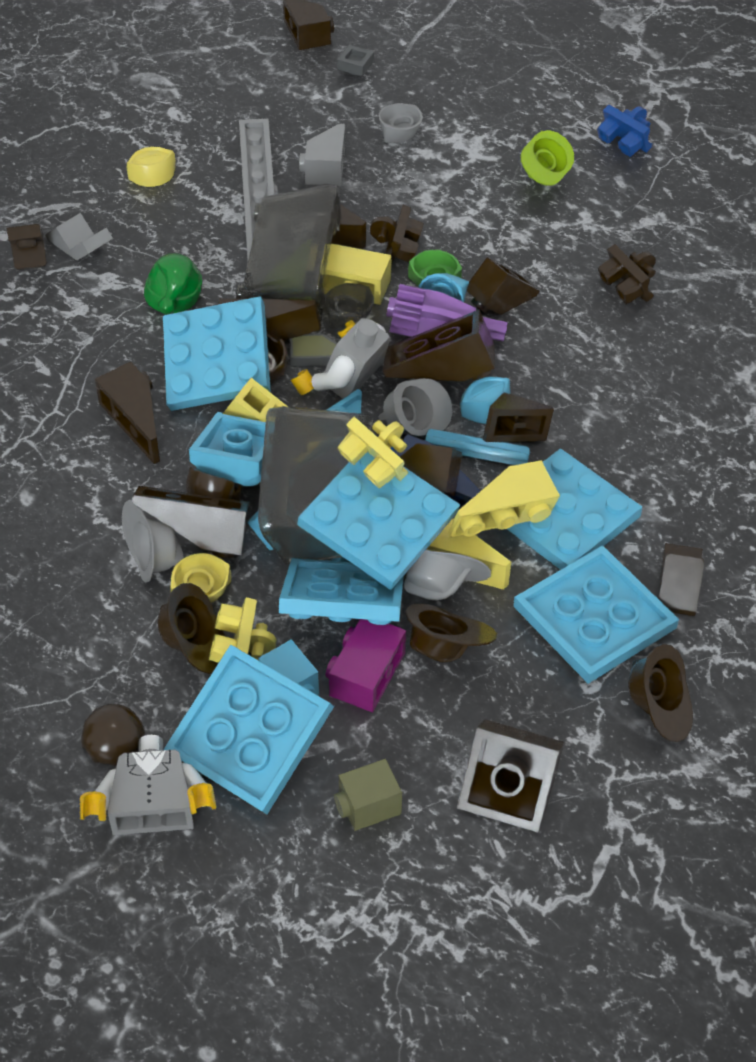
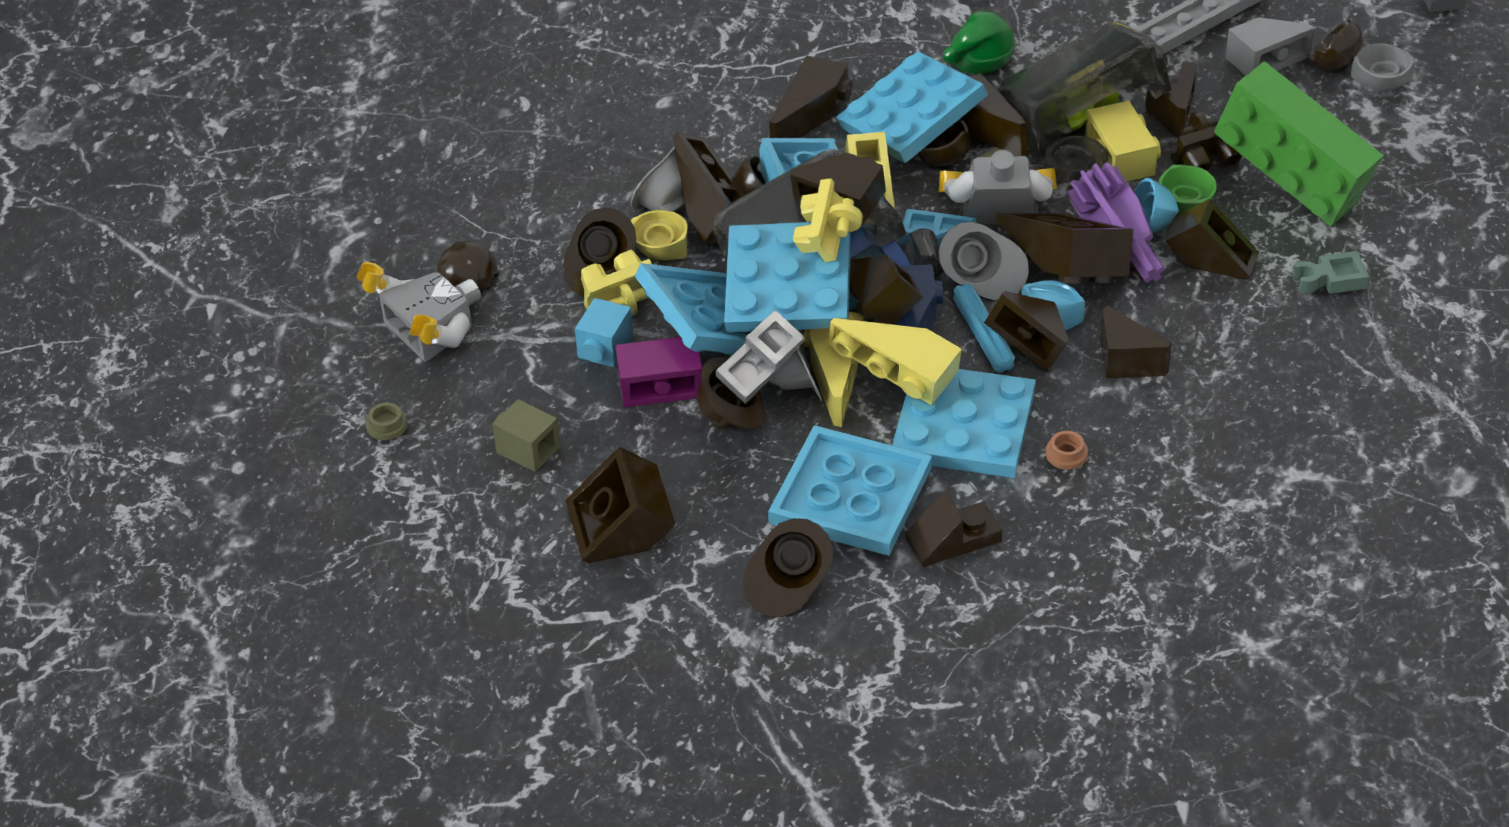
camera: 60 degrees right, 5 degrees down
(249, 728) = (523, 330): medium azure plate -> none
(259, 896) = (386, 421): none -> olive plate
(328, 421) = (853, 178): none -> dark brown slope
(364, 126) = (1338, 47): none -> dark brown hair
(443, 580) = (760, 357): none -> light grey slope
(468, 188) = (1297, 143): none -> bright green brick
(547, 157) = (1434, 182): lime piece -> none
(567, 383) = (1132, 348): none -> dark brown slope
(578, 249) = (1336, 271): none -> sand green plate
(633, 270) = (1336, 322): dark brown hips -> none
(644, 471) = (1067, 450): none -> nougat plate

